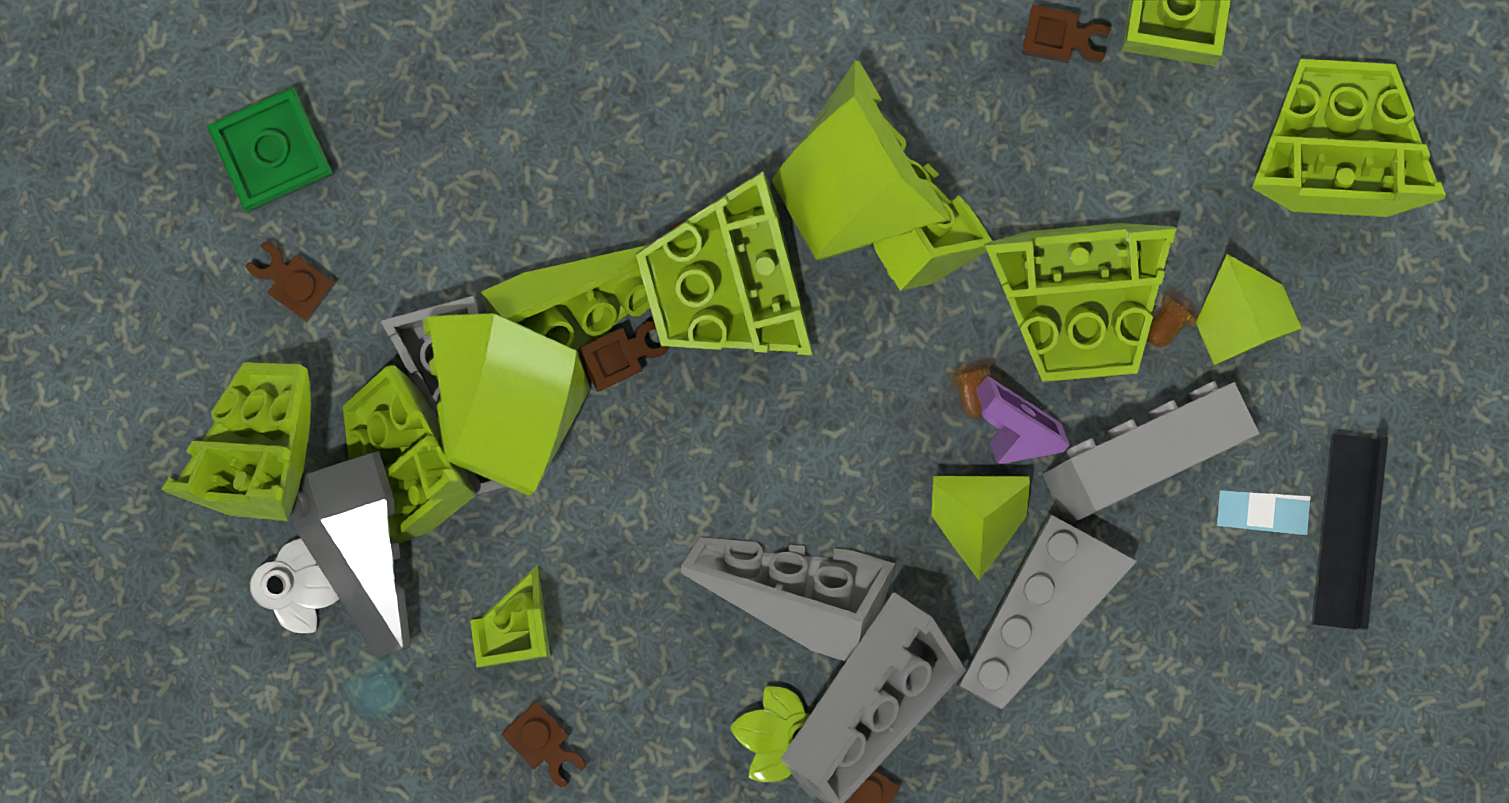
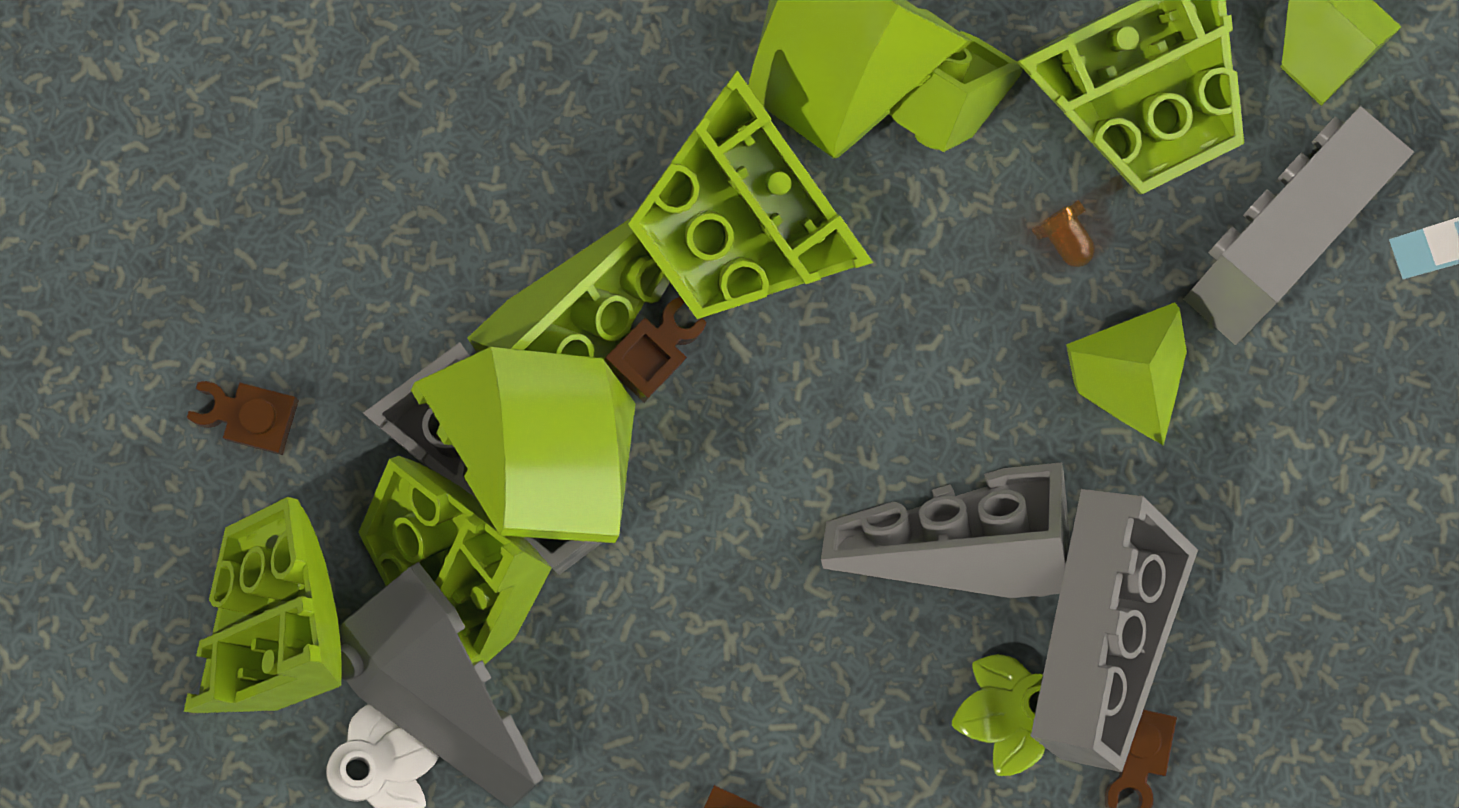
camera: 15 degrees left, 5 degrees down
(269, 150) = (166, 277): green plate -> none
(513, 627) = (653, 709): lime slope -> none
(1022, 427) = (1143, 253): medium lavender slope -> none
(1045, 603) = (1252, 443): light grey wedge -> none
(1169, 322) = (1256, 72): clear orange piece -> none

